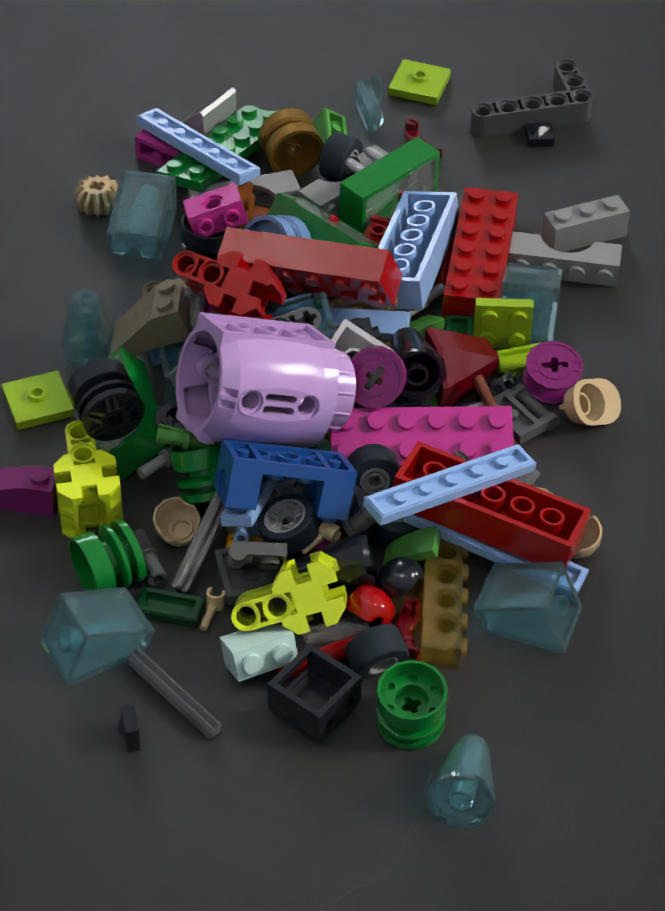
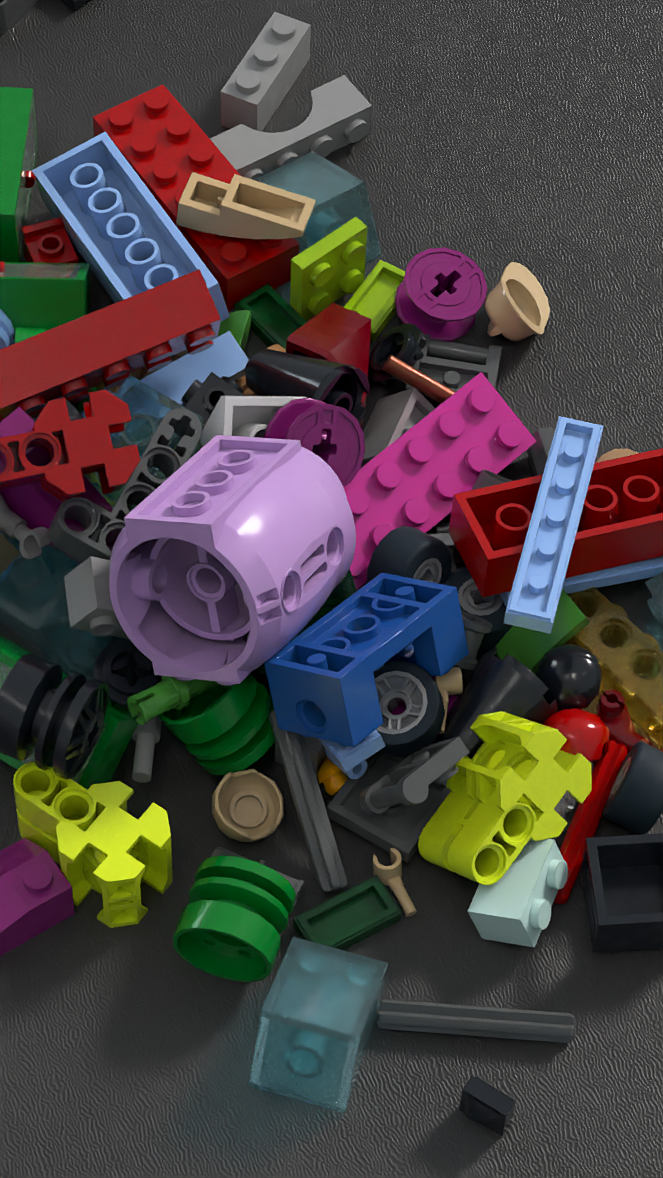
camera: 45 degrees left, 10 degrees up
(478, 261) = (243, 209): none -> tan slope

